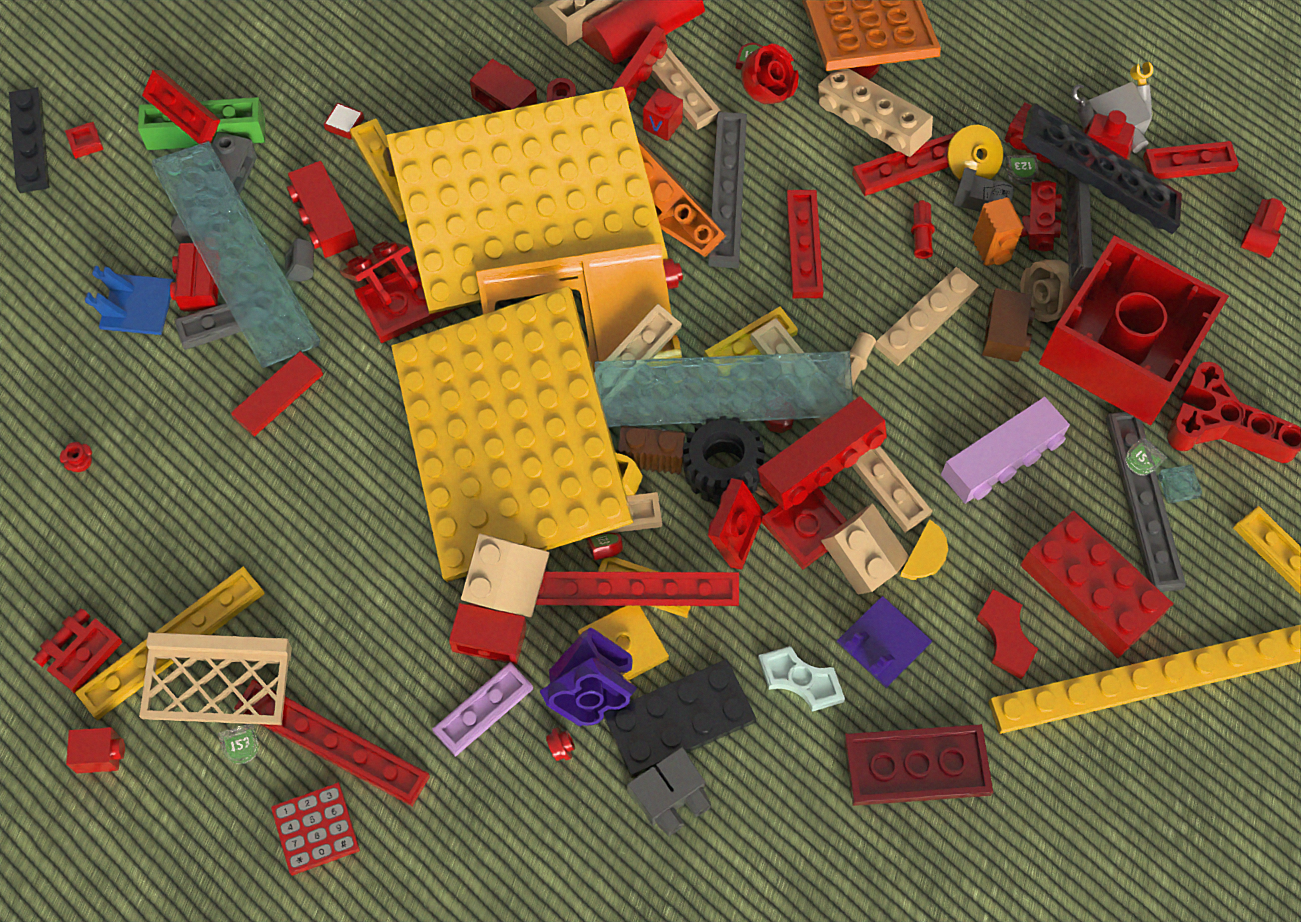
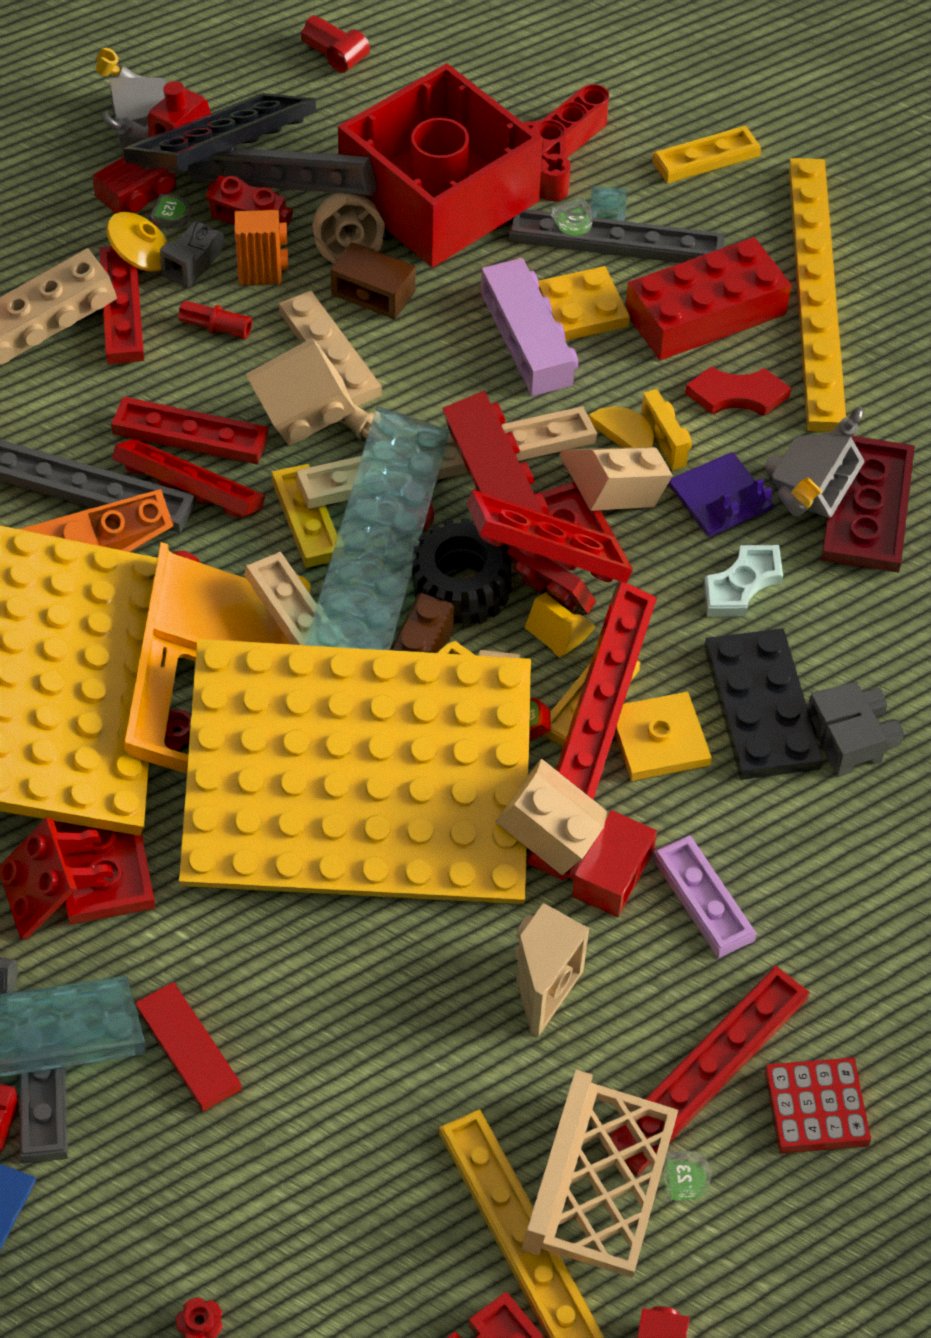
camera: 75 degrees left, 10 degrees down
(373, 600) = (549, 962): none -> tan slope
(560, 744) = (771, 820): red plate -> none
(589, 679) = (710, 761): dark purple piece -> none
(695, 548) = (557, 625): none -> yellow tile
(750, 502) = (548, 536): none -> red plate
(756, 255) = (178, 473): none -> red plate
(853, 301) = (301, 391): none -> tan slope
(919, 708) = (818, 469): none -> light grey torso
(925, 589) = (668, 435): none -> yellow plate
(1055, 488) = (585, 303): none -> yellow plate
(1191, 160) = (225, 69): red plate -> none

